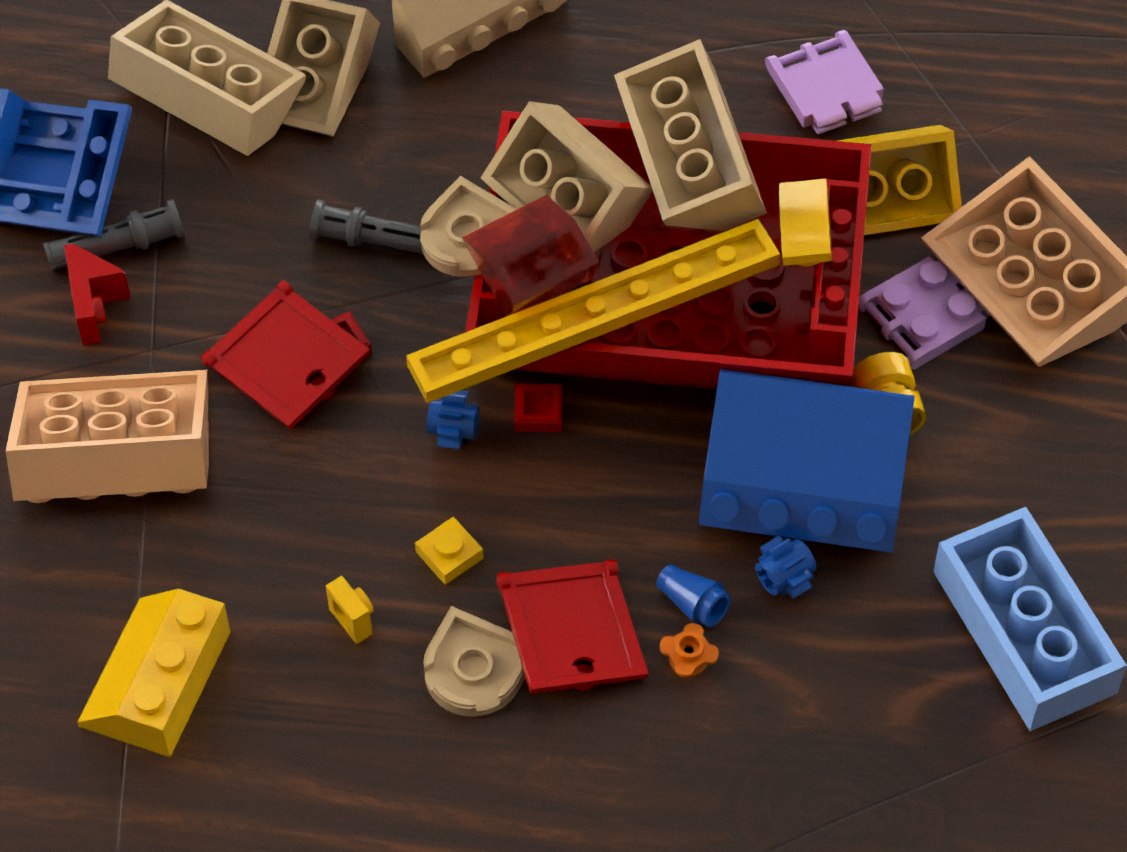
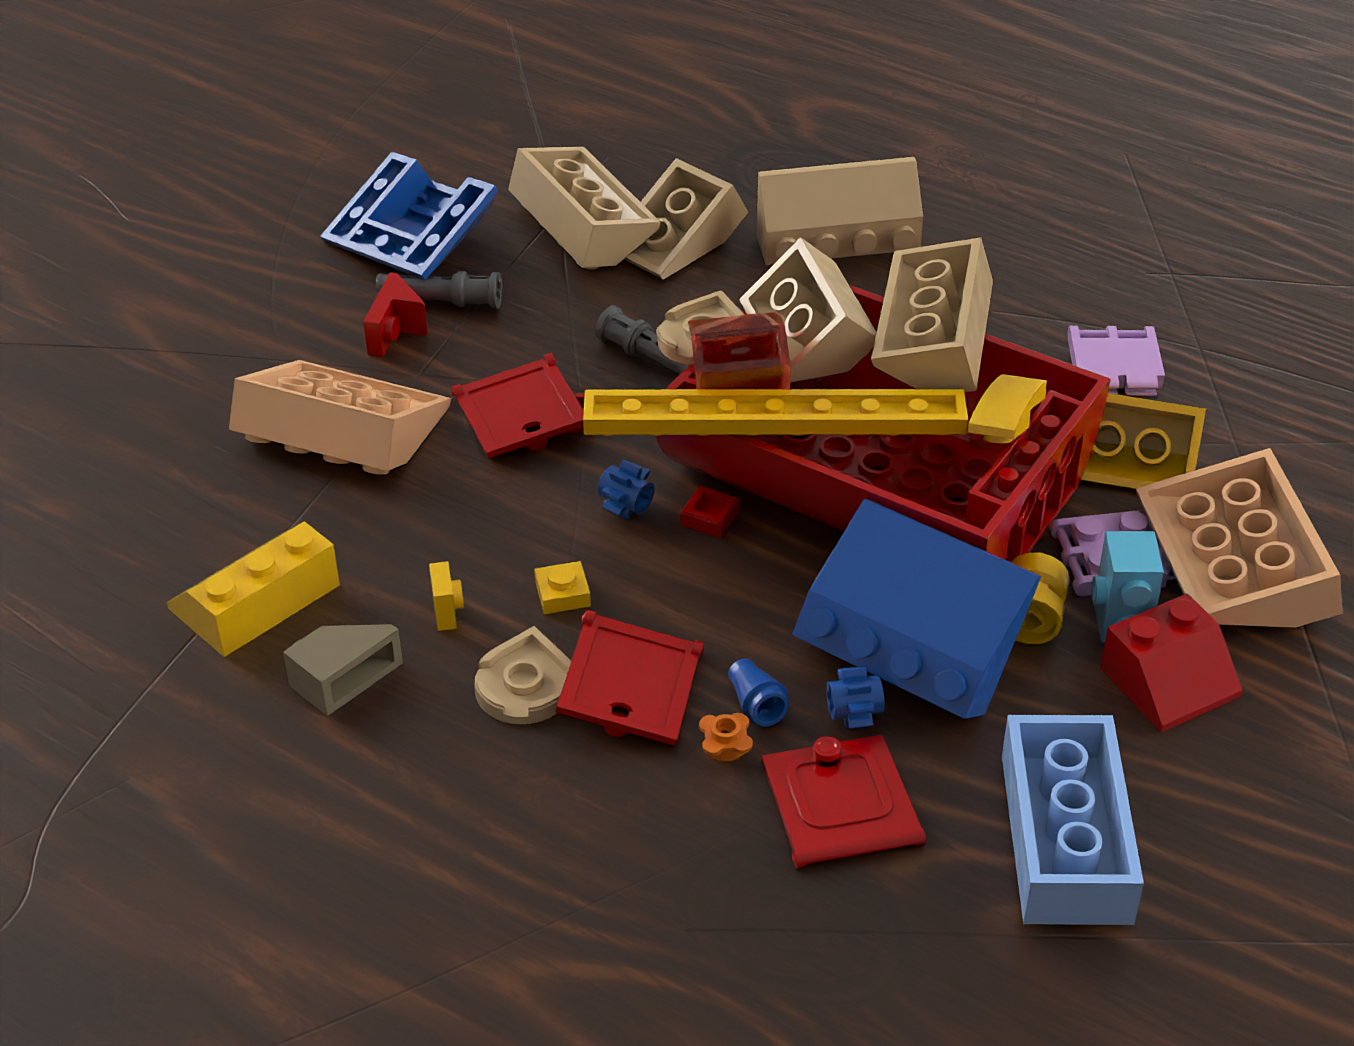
camera: 25 degrees right, 15 degrees down
(296, 723) = (341, 662): none -> dark tan slope
(824, 680) = (842, 807): none -> red container
(968, 356) = (1127, 577): none -> medium azure brick
(1034, 418) = (1171, 662): none -> red slope

